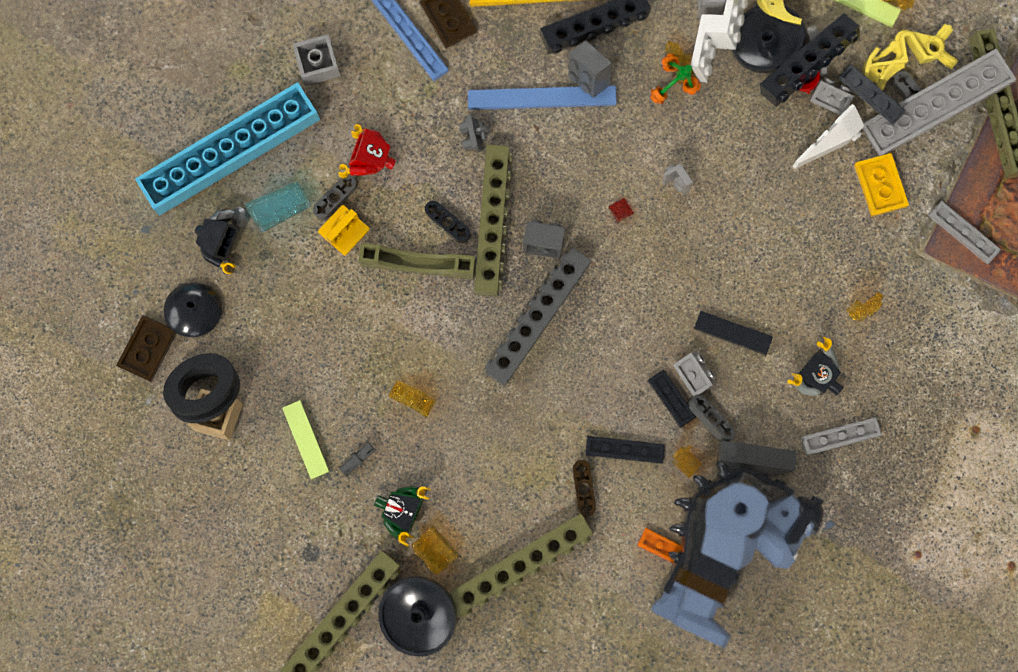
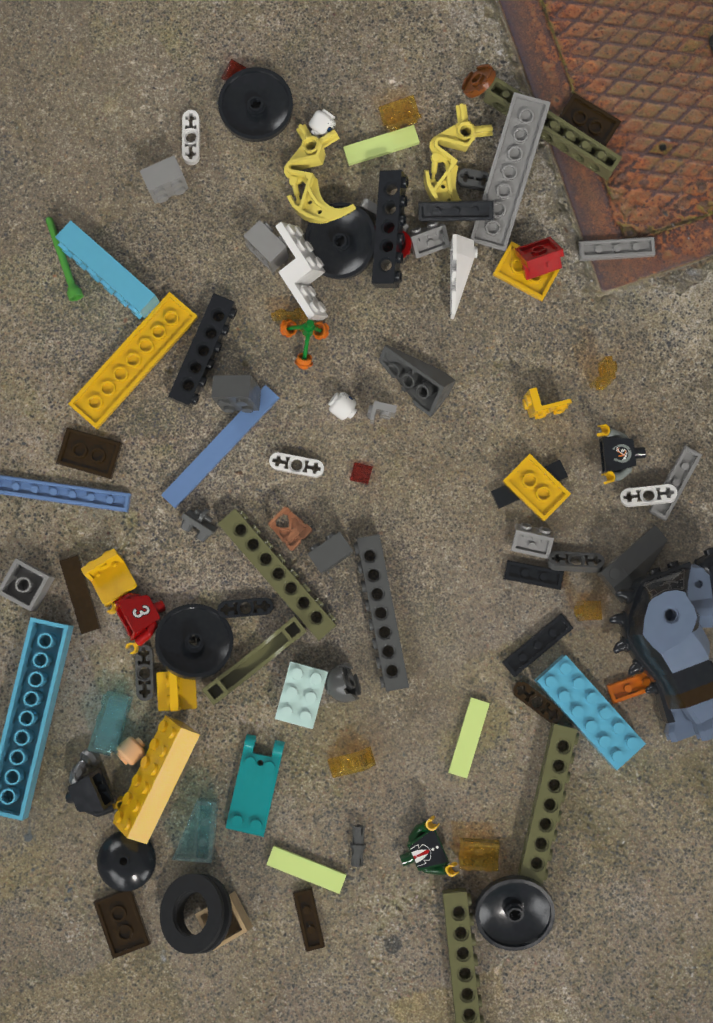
camera: 45 degrees left, 5 degrees up
(261, 339) = (200, 833): none -> clear light blue wedge
(268, 271) = (155, 779): none -> yellow brick
(271, 238) = (131, 750): none -> light nougat head
(272, 475) = (308, 919): none -> dark brown tile
(328, 348) = (254, 788): none -> teal hinge
(345, 103) = (80, 594): none -> dark brown tile
(378, 108) = (109, 576): none -> yellow bracket
(389, 207) = (194, 625): none -> black dish
(425, 316) = (301, 694): none -> light aqua brick
(460, 337) = (342, 684): none -> dark grey cylinder
(510, 464) = (468, 737): none -> yellowish green tile
(532, 204) = (294, 533): none -> nougat piece
(584, 174) = (281, 467): none -> white beam
(614, 531) = (589, 712): none -> medium azure brick
(654, 150) = (342, 405): none -> white head
(728, 188) = (420, 380): none -> dark grey wedge
(735, 338) = (536, 487): none -> yellow plate
(795, 289) = (533, 405): none -> yellow bracket
(812, 432) = (663, 498): none -> white beam
(899, 182) = (540, 257): none -> red bracket
(978, 22) = (479, 81): none -> dark orange tile

